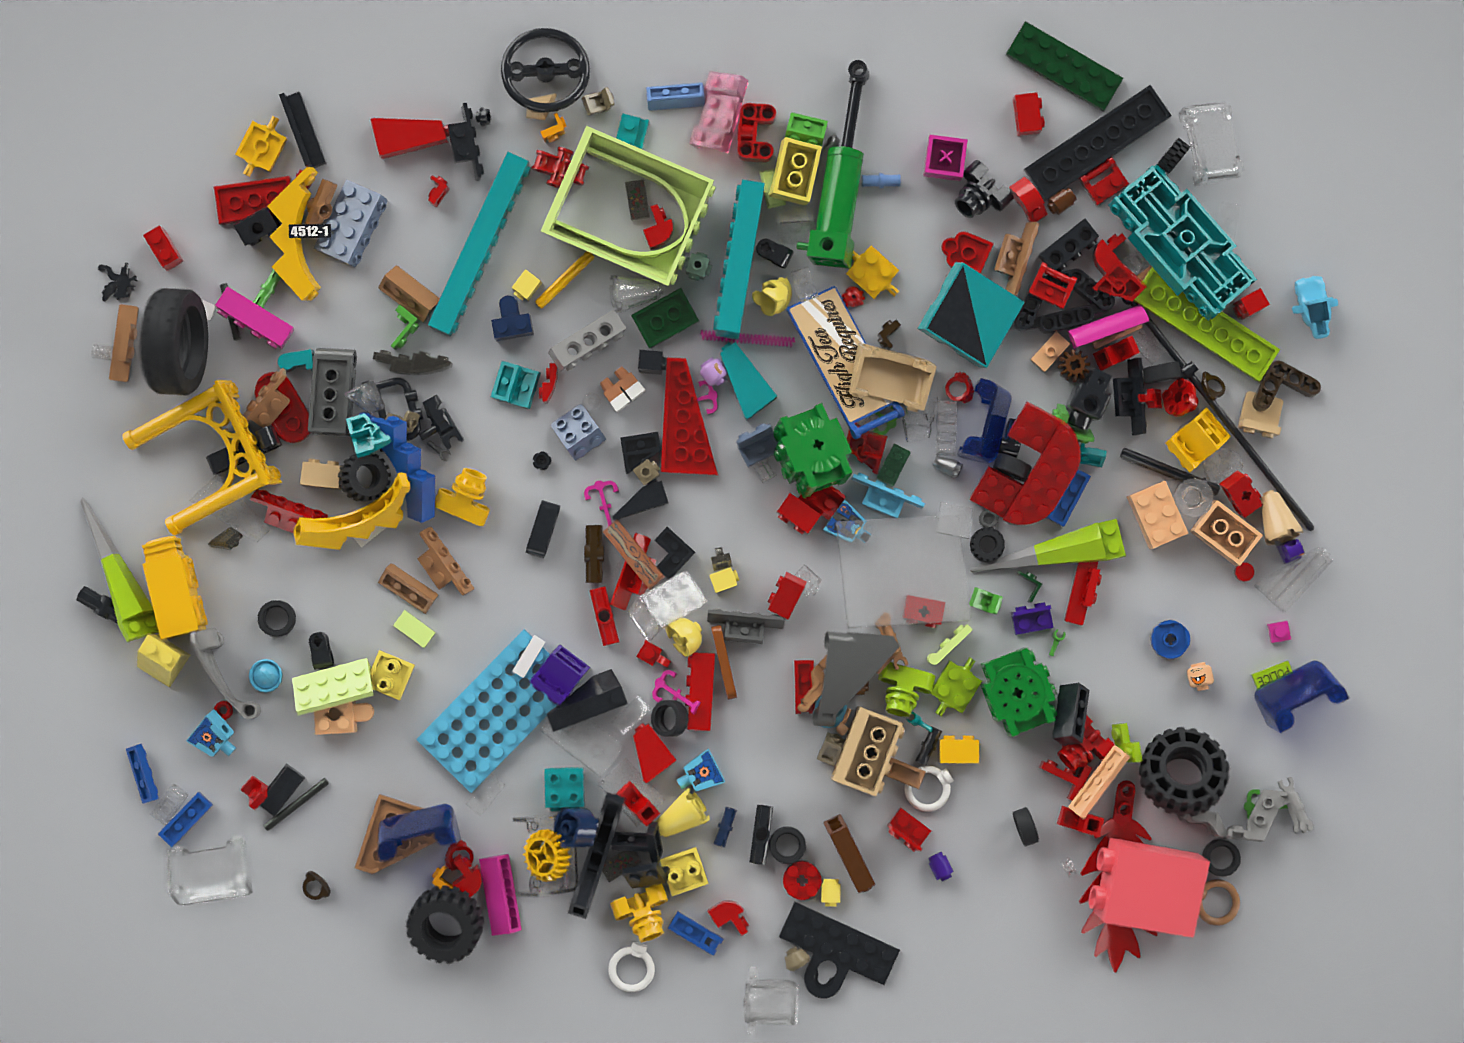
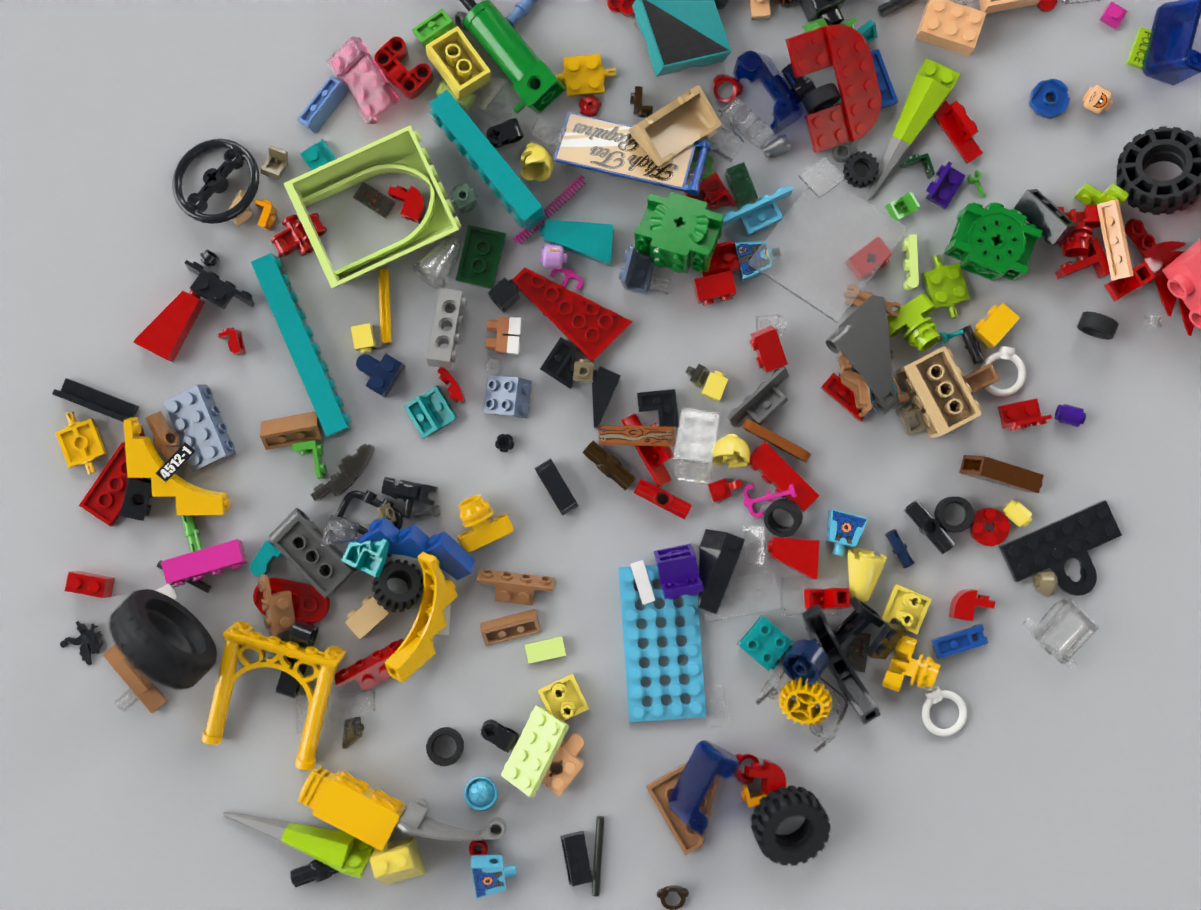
camera: 40 degrees left, 0 degrees up
(256, 792) = (561, 878): red bracket -> none
(500, 894) = (802, 762): dark pink brick -> none
(599, 485) = (561, 416): dark pink piece -> none

